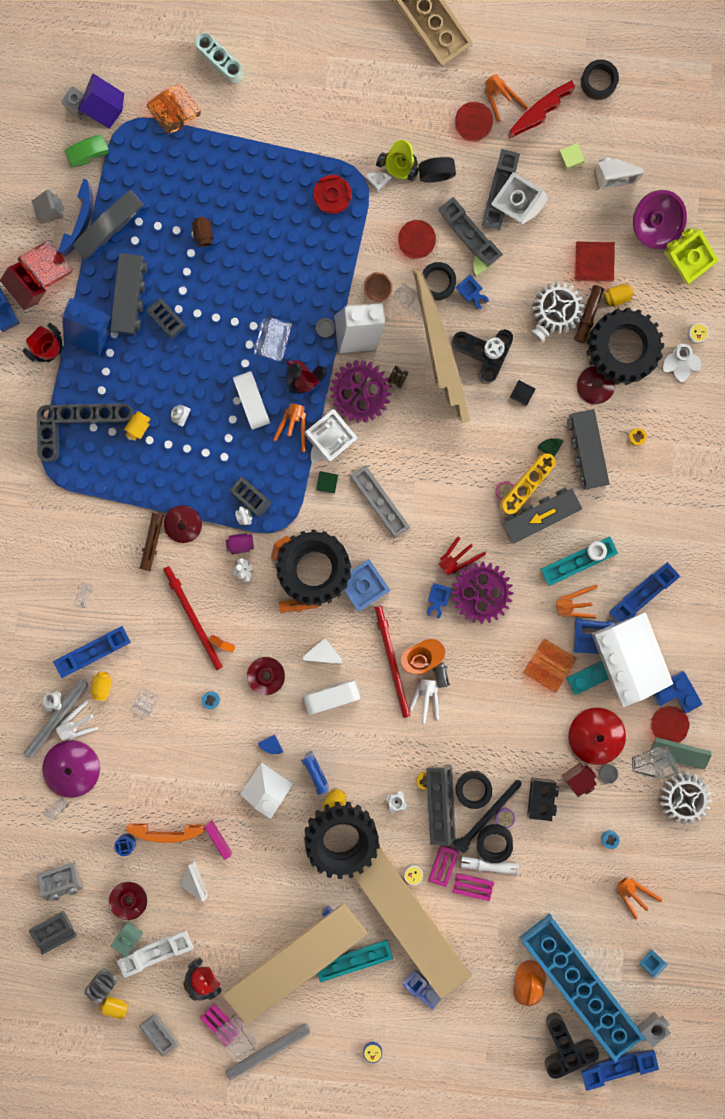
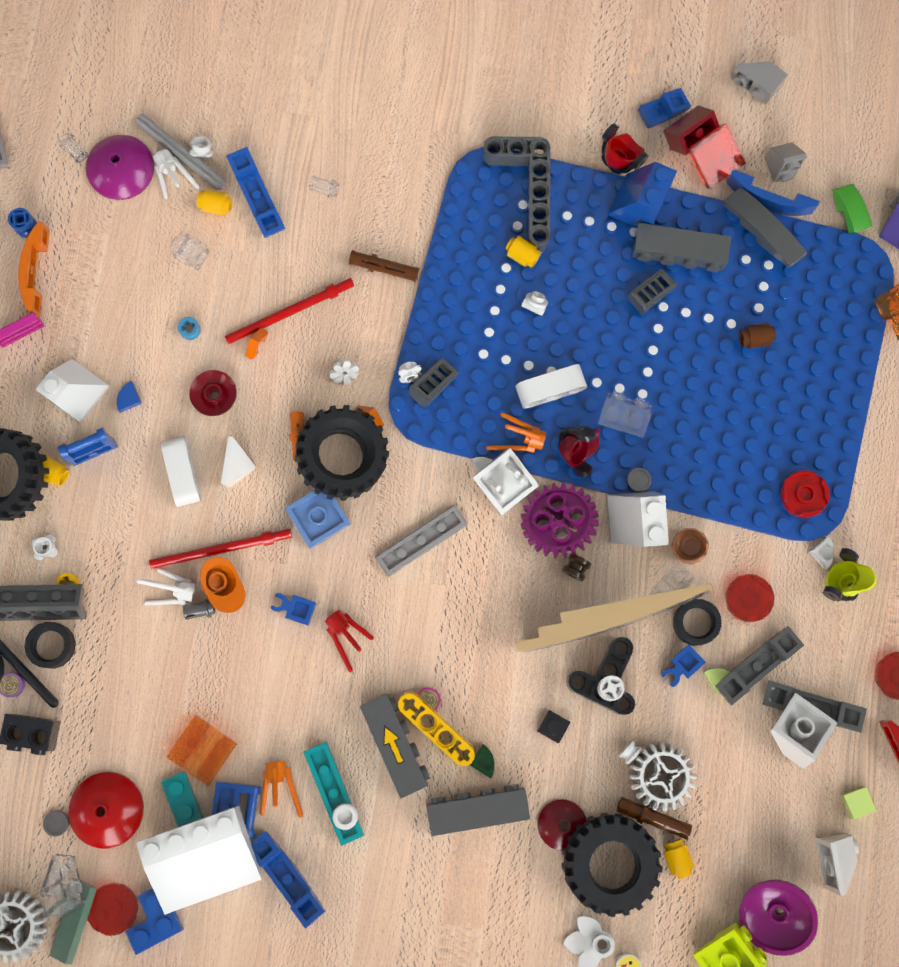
camera: 90 degrees right, 10 degrees down
(189, 518) = (407, 311): dark red dish -> none
(240, 543) = (376, 368): magenta brick -> none
(327, 482) = (448, 476): dark green tile -> none
(437, 169) = (838, 624): black tyre -> none
(494, 580) = (314, 681): magenta gear -> none
(580, 779) = (48, 783): dark red brick -> none
(594, 261) = (722, 828): clear red tile -> none
(633, 432) = (486, 882): yellow bush -> none

